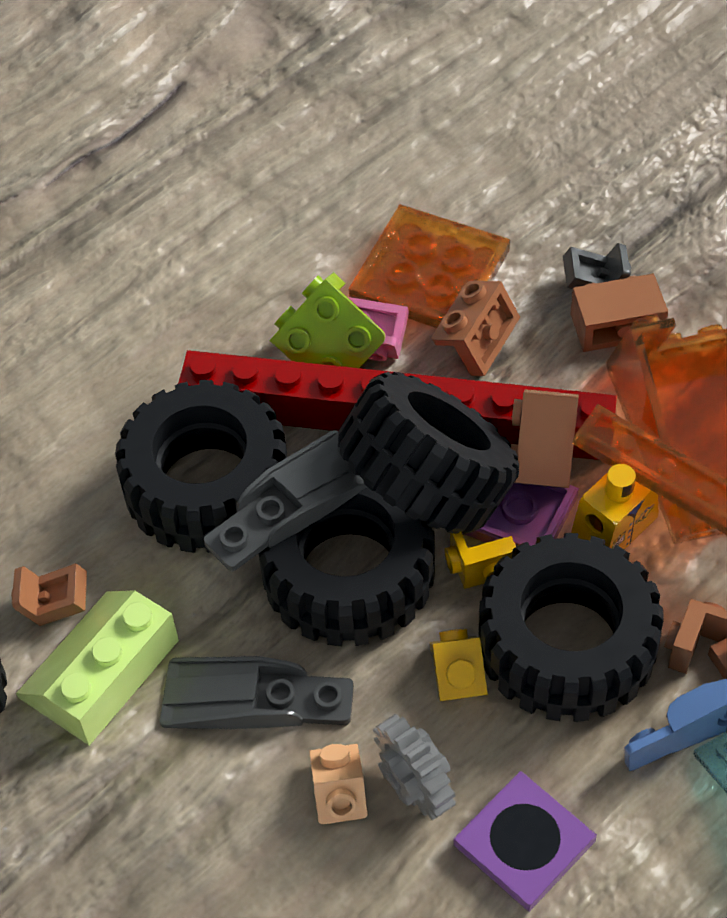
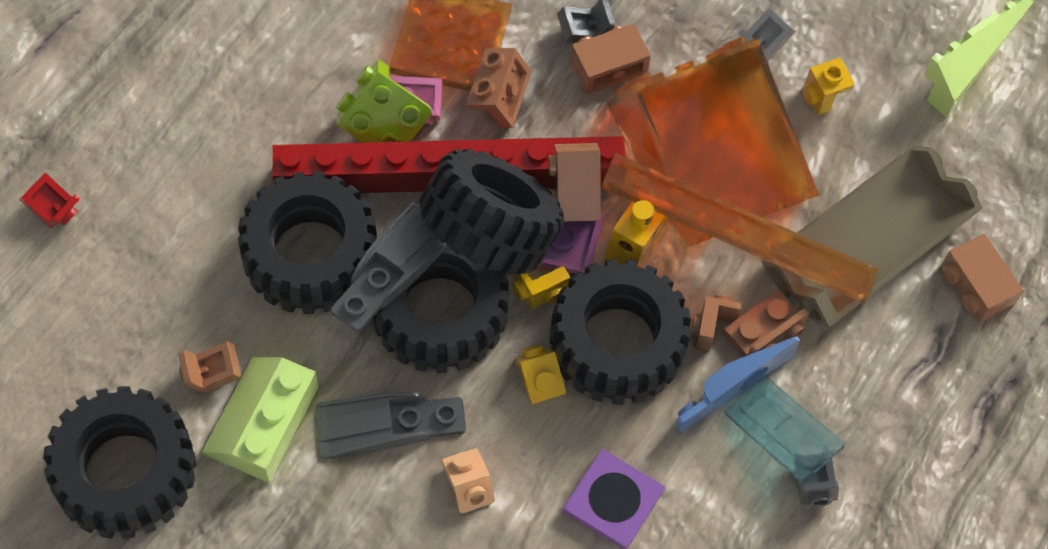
camera: 20 degrees left, 10 degrees up
(414, 766) = (526, 461): light grey gear -> none

